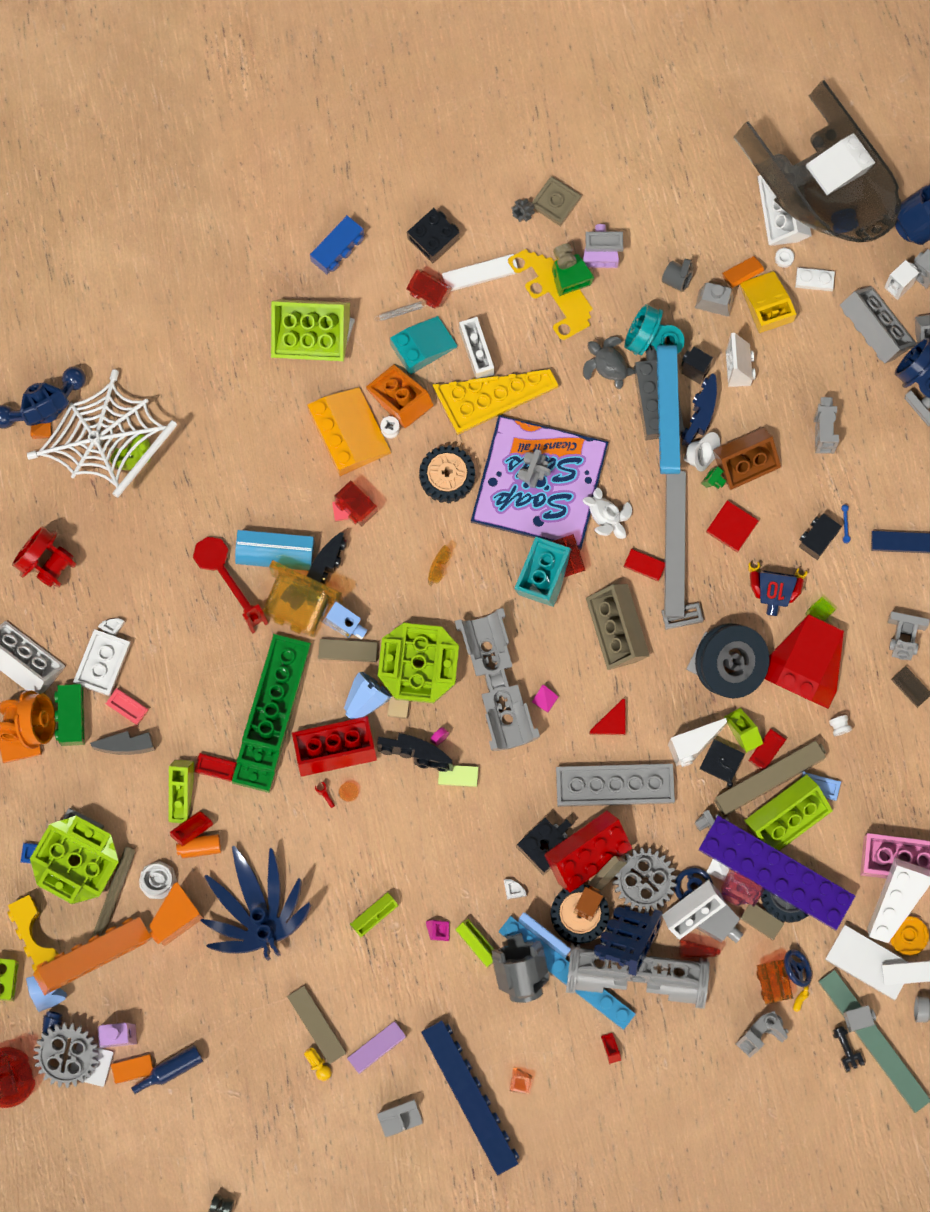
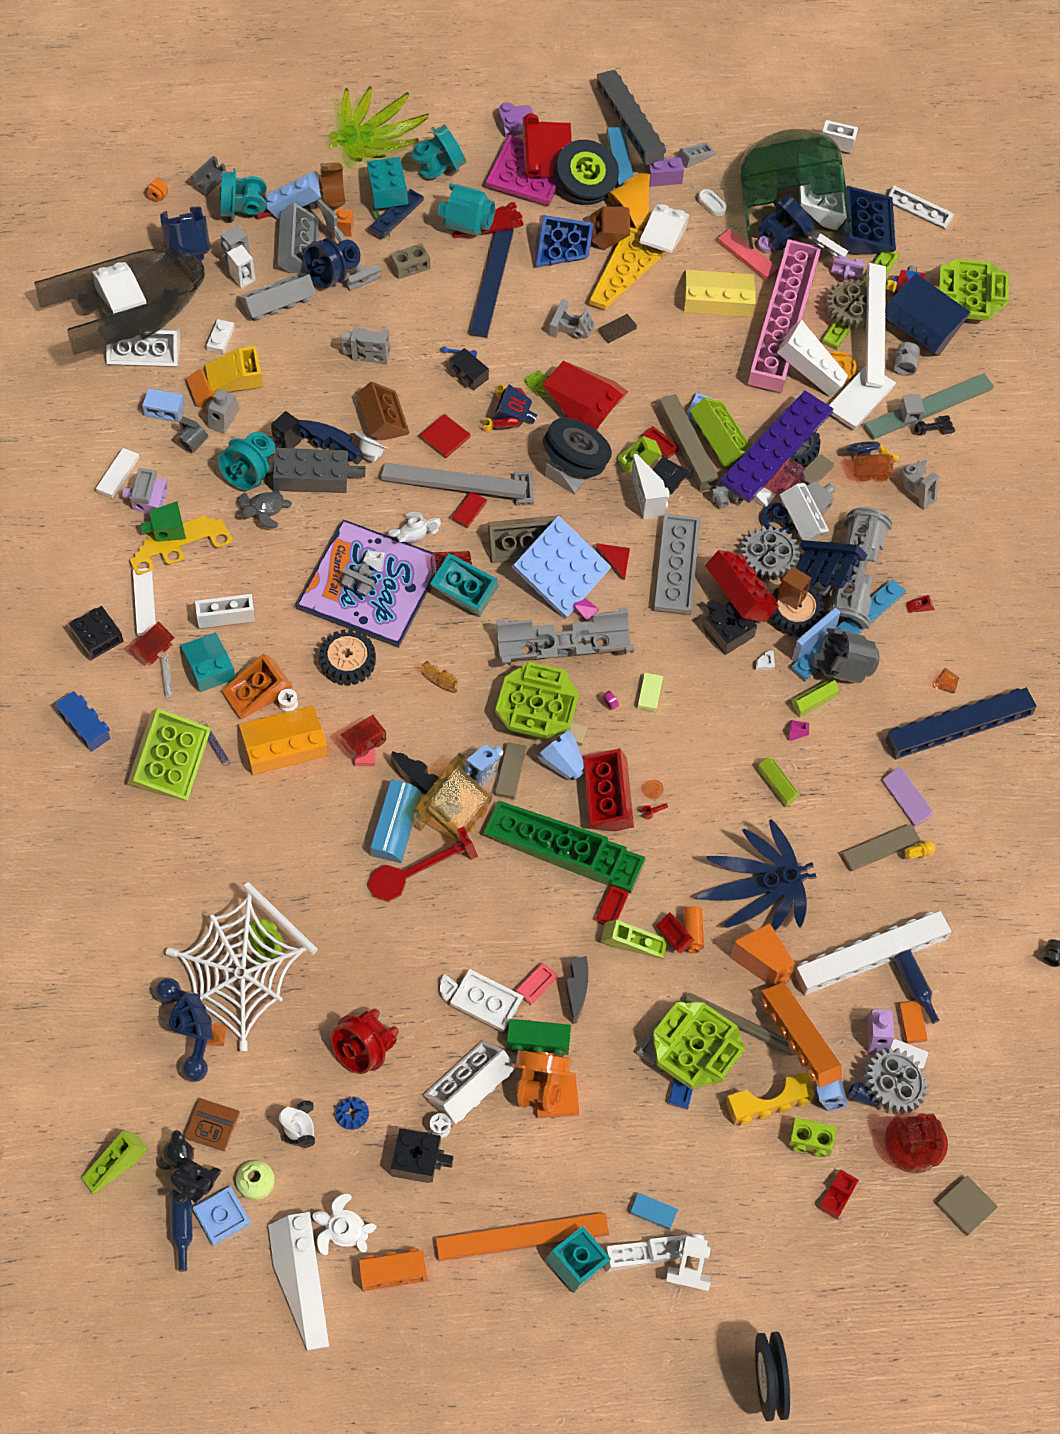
camera: 85 degrees left, 15 degrees down
(157, 880) = (722, 975): white hat -> none
(199, 1027) = (871, 953): none -> white brick
(337, 368) = (220, 750): none -> piece
(400, 1118) = (975, 786): light grey panel -> none
(423, 752) = (625, 714): black slope -> none
(486, 398) = (277, 617): yellow wing -> none
(523, 210) = (85, 553): dark grey gear -> none
(556, 201) = (86, 528): dark tan tile -> none
(563, 480) = (374, 559): none -> white slope
(564, 255) = (152, 516): dark tan wheel -> none
(583, 665) = (561, 566): none -> light blue plate
(603, 877) = (761, 573): dark tan tile -> none
(625, 215) = (117, 473): none -> white tile
(668, 409) = (328, 453): dark azure beam -> none
(692, 949) = (837, 526): clear red slope -> none
(713, 241) = (163, 405): none -> light blue brick
(713, 478) = (396, 440): green tile -> none
(739, 362) = (290, 398): white slope -> none
(784, 257) = (193, 356): white tile -> none
(840, 725) = (646, 382): white wheel -> none

